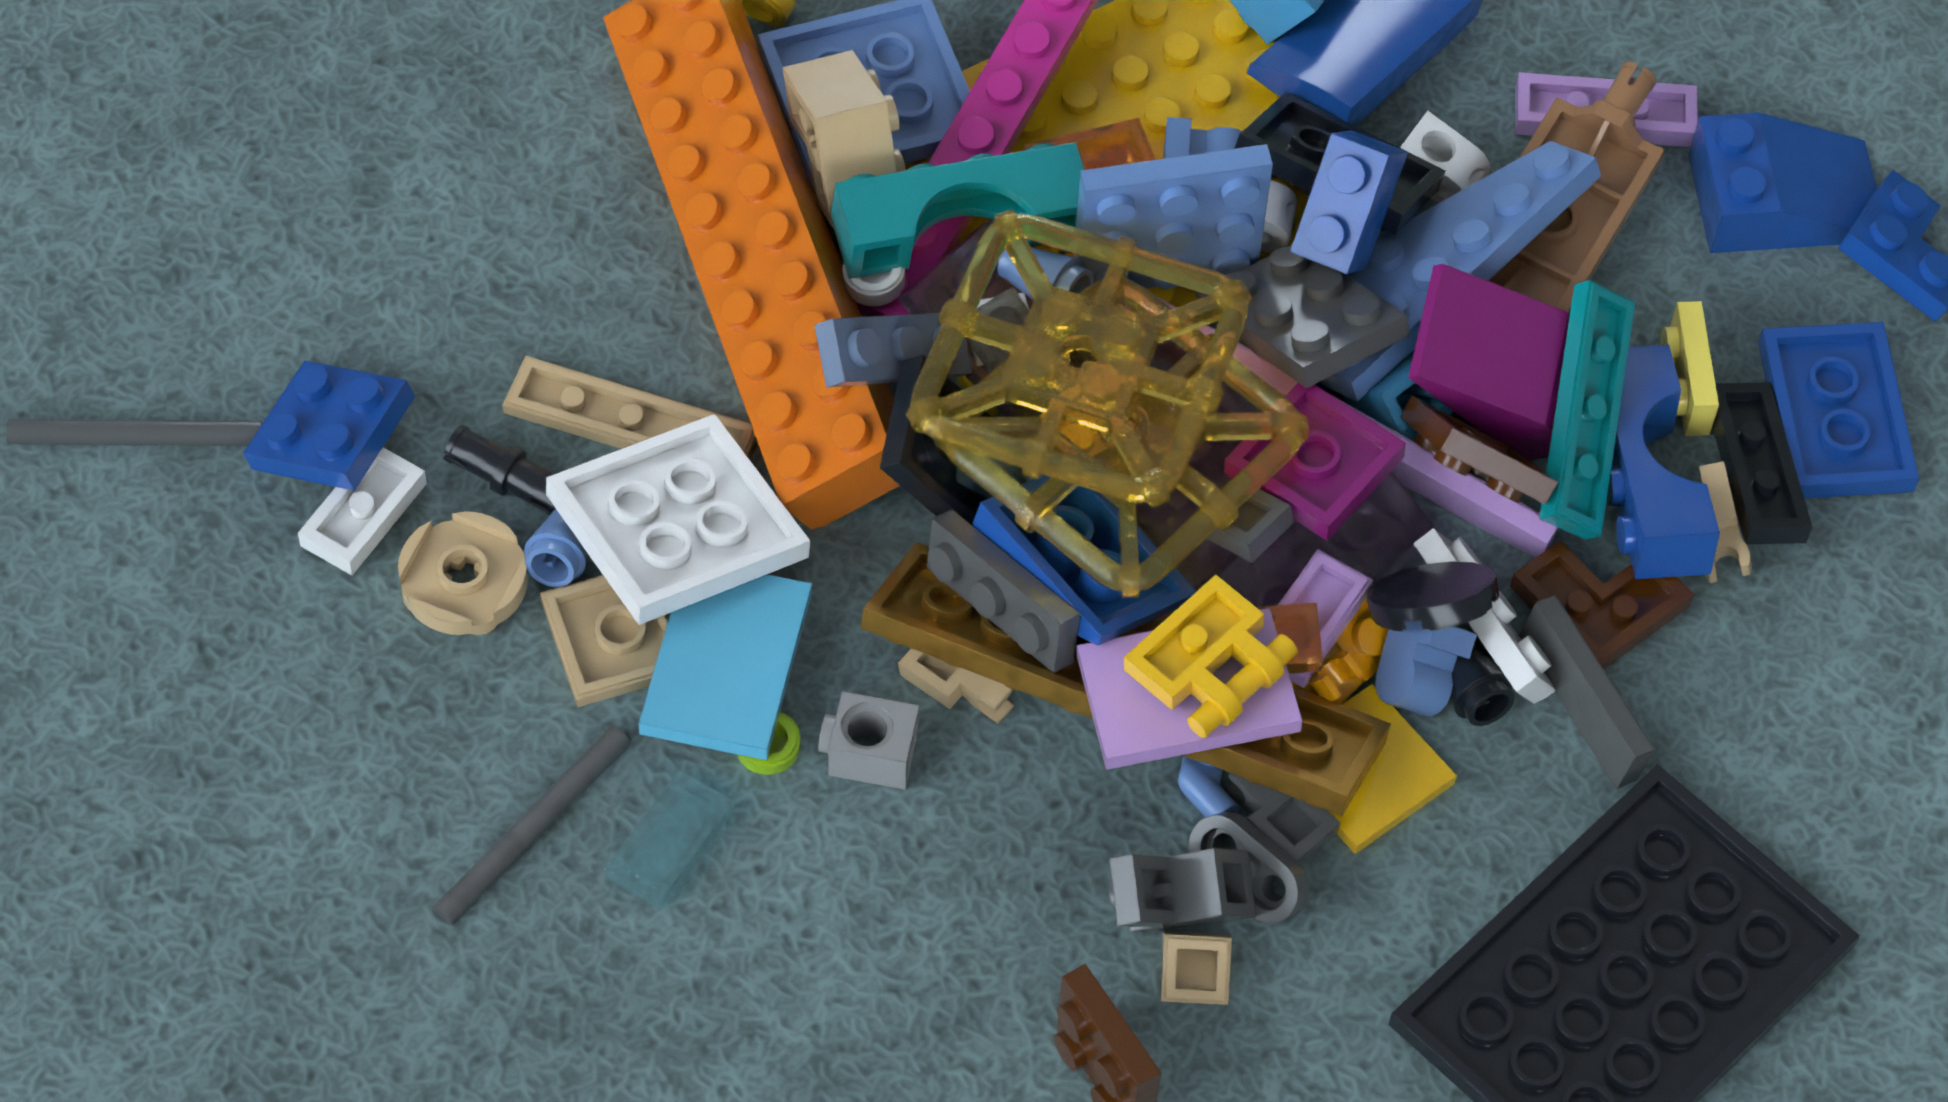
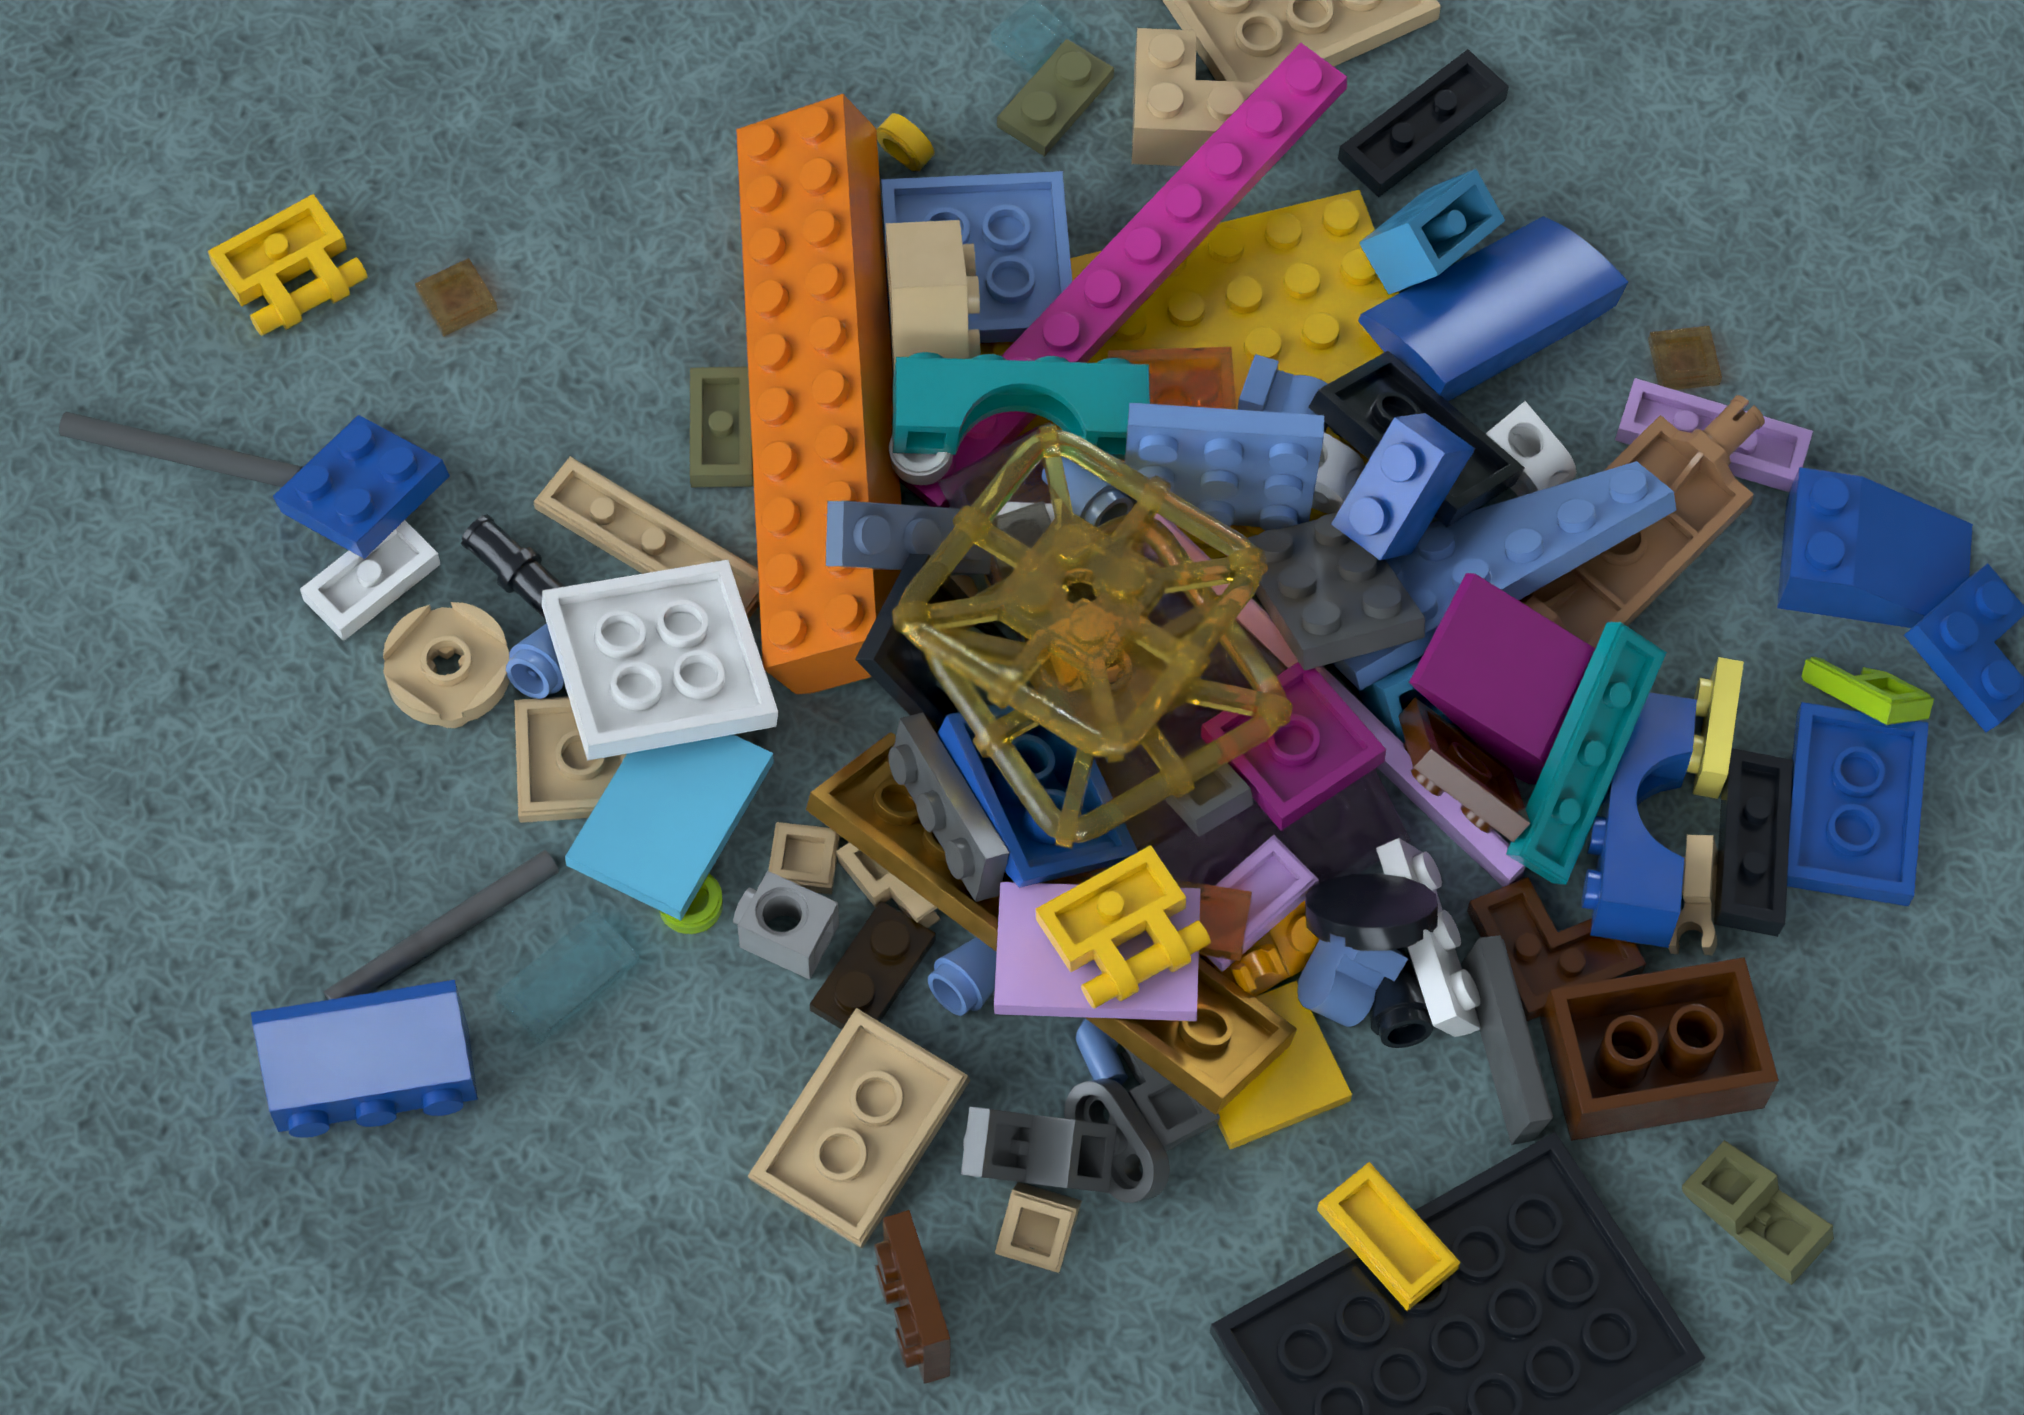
camera: 15 degrees right, 5 degrees up
(179, 224) = (281, 250): none -> yellow plate
(367, 232) = (456, 297): none -> clear orange tile
(501, 953) = (365, 1058): none -> slope
(665, 297) = (720, 428): none -> olive plate
(866, 671) = (805, 855): none -> tan tile
(965, 768) = (873, 967): none -> dark brown plate
(998, 913) = (859, 1128): none -> tan tile
(1062, 745) = (964, 977): none -> medium blue cone
(1534, 892) = (1388, 1236): none -> yellow tile
(1556, 46) = (1685, 358): none -> clear orange tile
(1730, 666) = (1658, 1048): none -> reddish brown brick
(1820, 306) = (1871, 692): none -> lime tile
(1852, 792) = (1753, 1210): none -> olive slope

